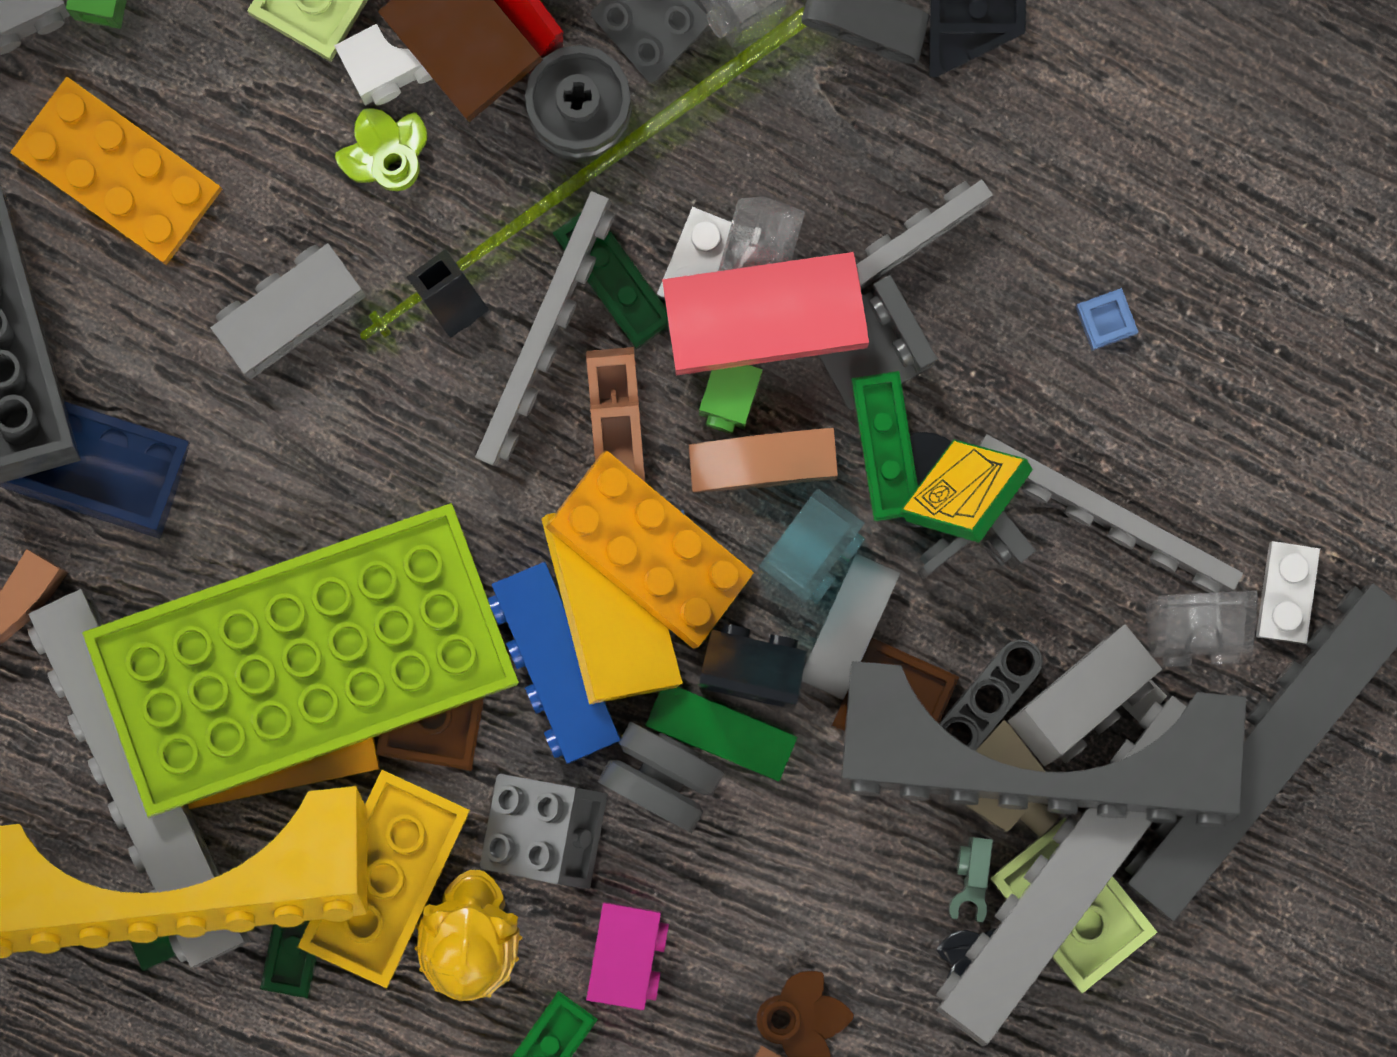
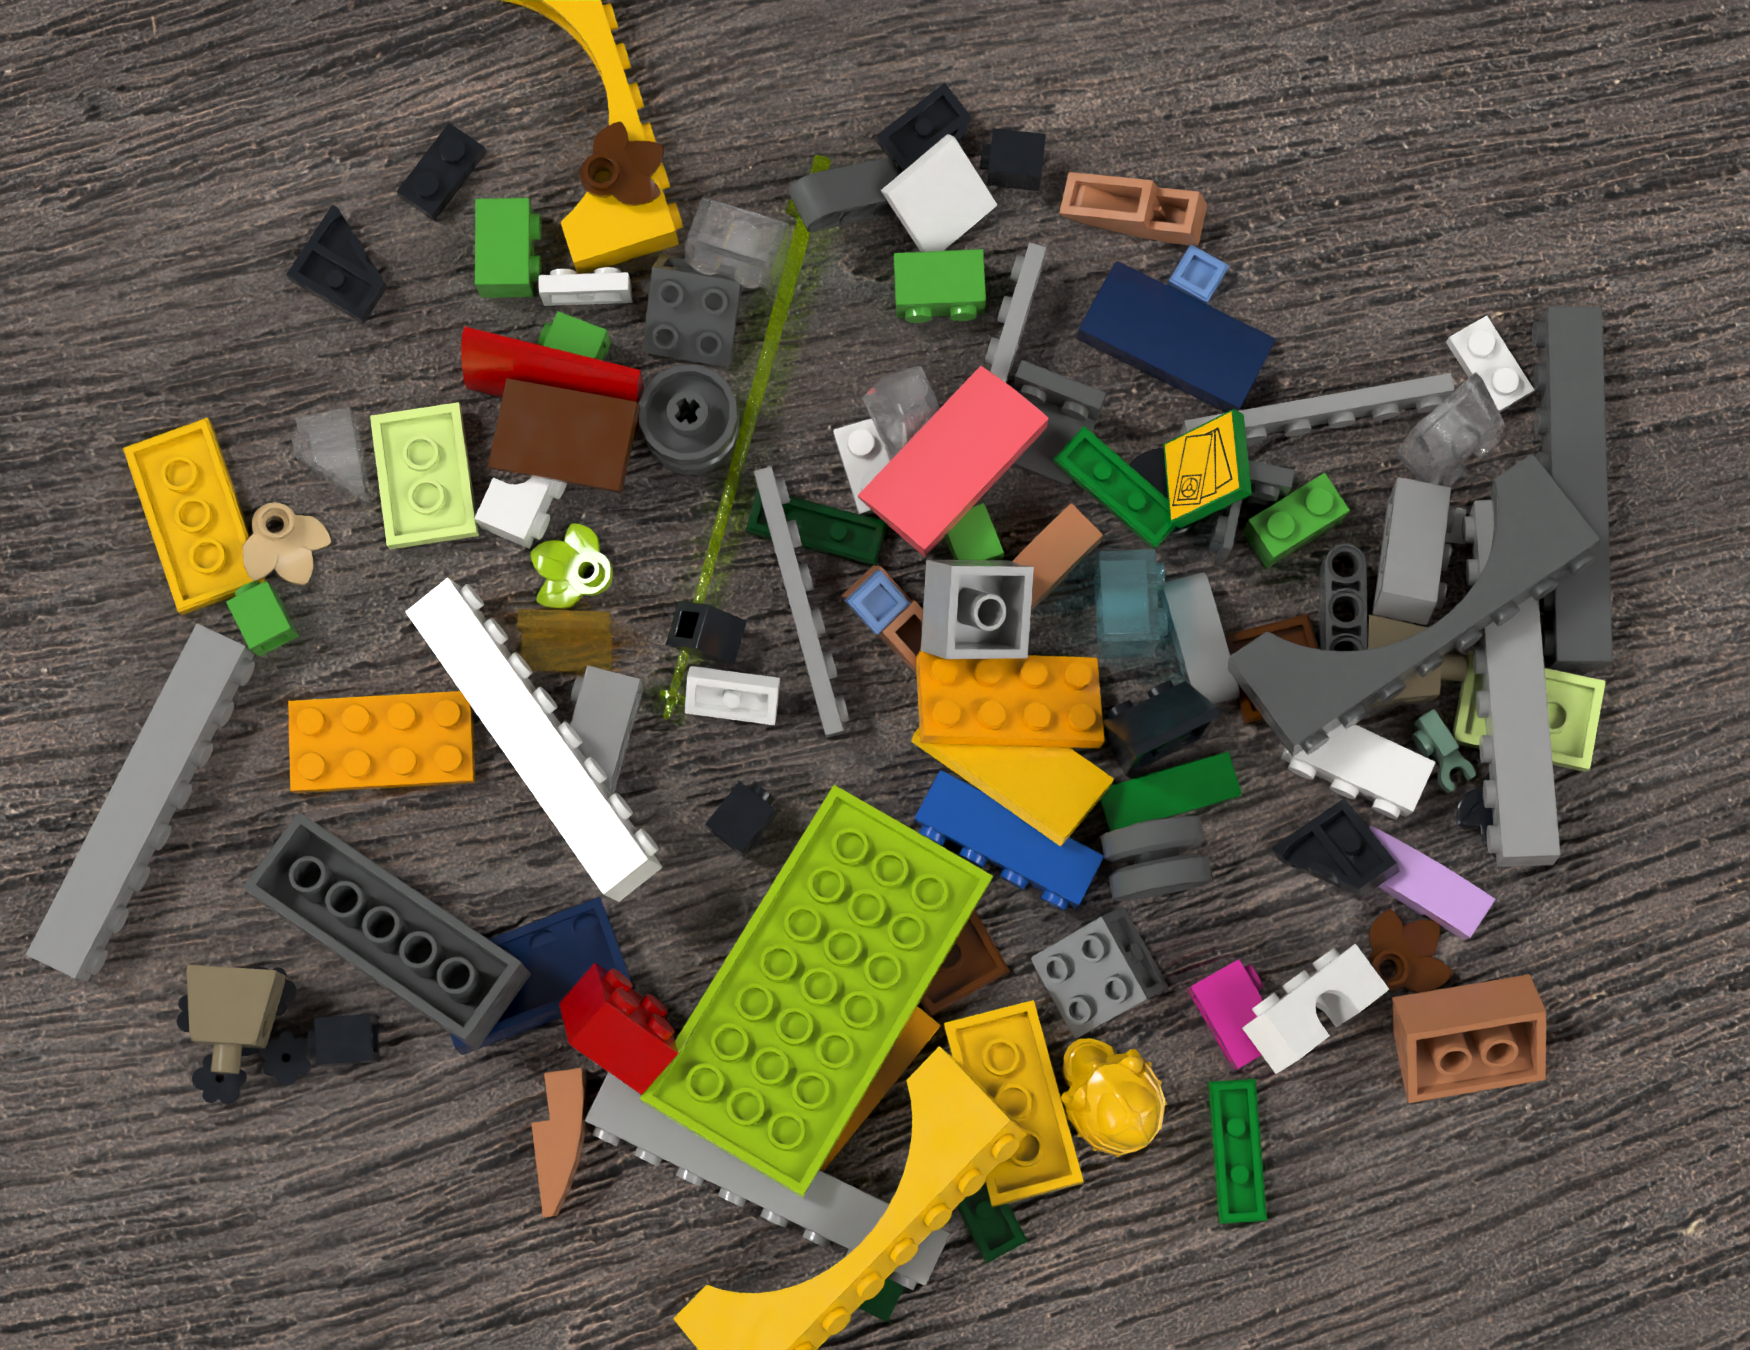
camera: 35 degrees left, 5 degrees down
(112, 561) = (619, 1027): none -> red brick
(233, 270) = (535, 740): none -> white brick
(331, 208) = (566, 639): none -> clear yellow panel
(356, 470) = (743, 817): none -> black brick
(428, 362) = (732, 695): none -> white plate
(606, 381) = (877, 602): none -> medium blue tile
(651, 999) = (1290, 1026): none -> white arch
(680, 453) = (977, 609): none -> light grey brick
(818, 892) = (1339, 851): none -> black wing
(864, 971) = (1434, 889): none -> lavender slope
(880, 155) = (939, 285): none -> bright green brick
(901, 842) = (1367, 767): none -> white brick
(939, 80) = (939, 196): none -> white tile
(1012, 591) = (1295, 520): none -> bright green brick
(1031, 97) = (1014, 159): none -> black brick
(1043, 357) = (1175, 338): none -> dark blue slope
(1099, 219) = (1134, 207): none -> nougat slope

